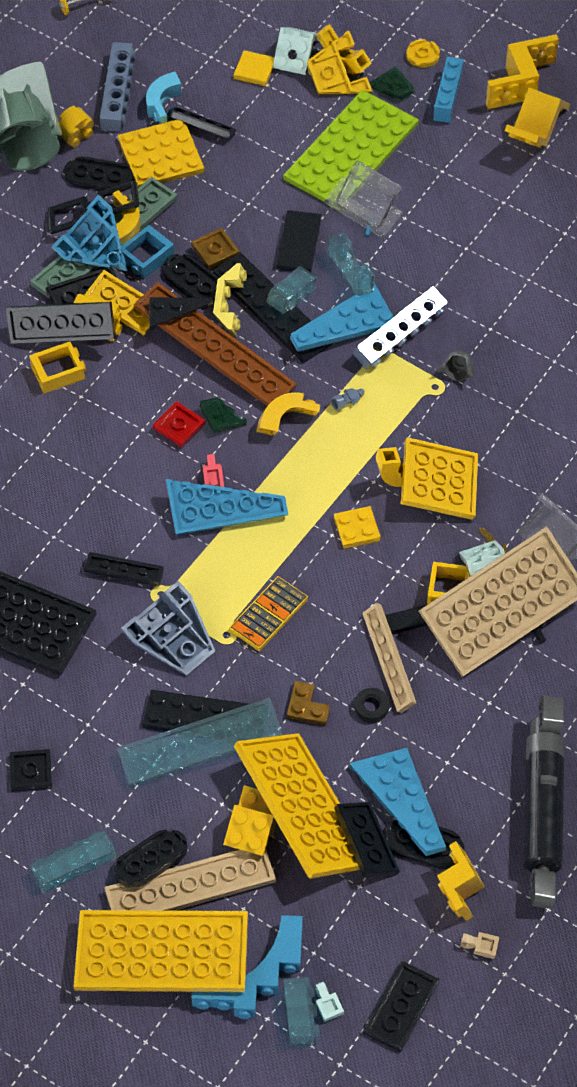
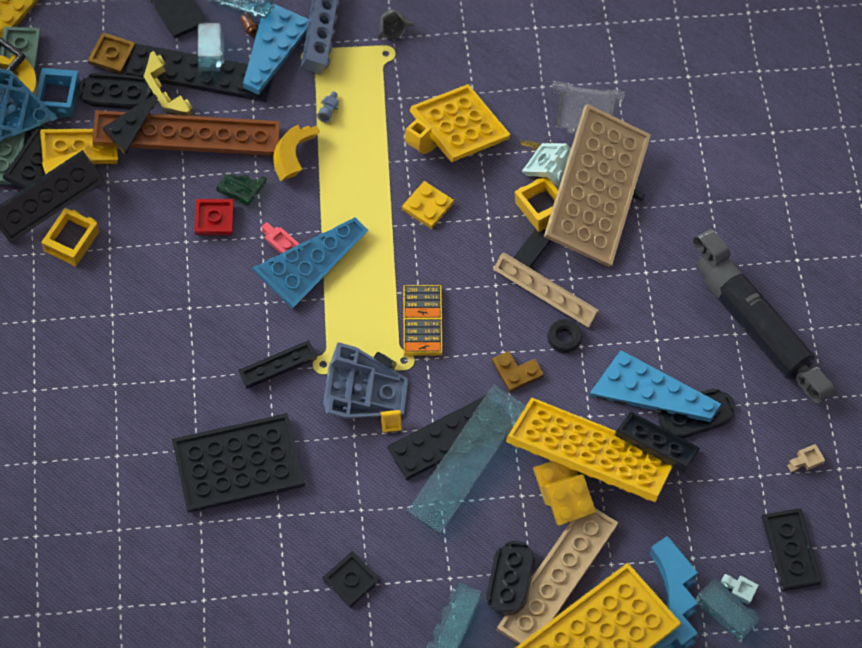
camera: 40 degrees left, 5 degrees up
(170, 672) = (391, 421): none -> yellow tile
(208, 623) = (385, 360): none -> black tile
(343, 293) = (250, 27): none -> dark orange pin
(460, 882) = (756, 422): yellow bracket -> none

